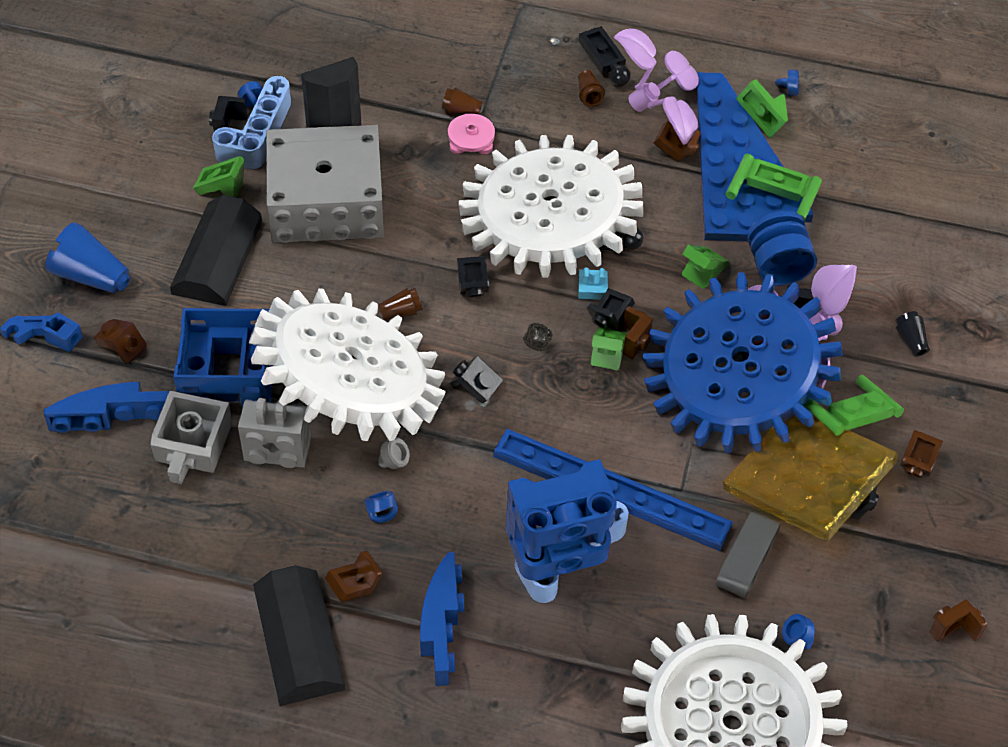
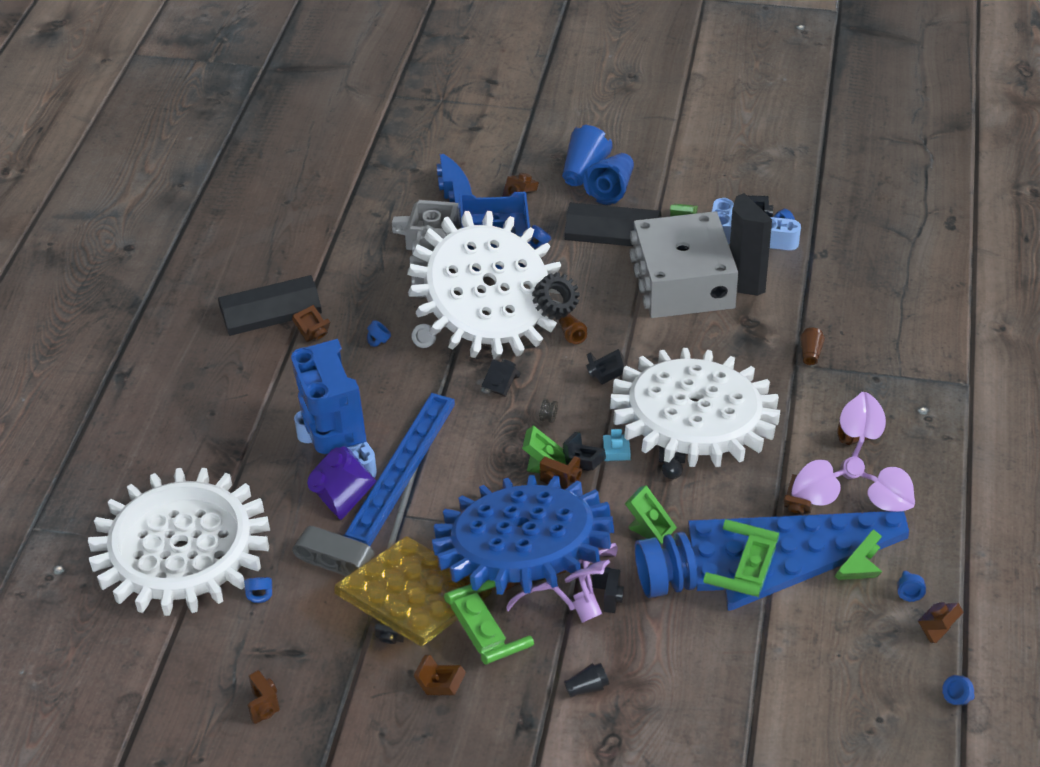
camera: 90 degrees right, 10 degrees down
(66, 337) = (525, 155): blue piece -> none
(138, 237) = (609, 178): none -> blue cone
(375, 299) = (564, 287): none -> black tyre
(439, 614) = (261, 370): blue slope -> none
(471, 134) = (779, 358): bright pink piece -> none
(605, 55) = (906, 441): black plate -> none
(647, 540) = (340, 481): none -> dark purple slope
(838, 64) = (939, 620): none -> reddish brown bracket
(907, 72) = (958, 690): none -> blue tile

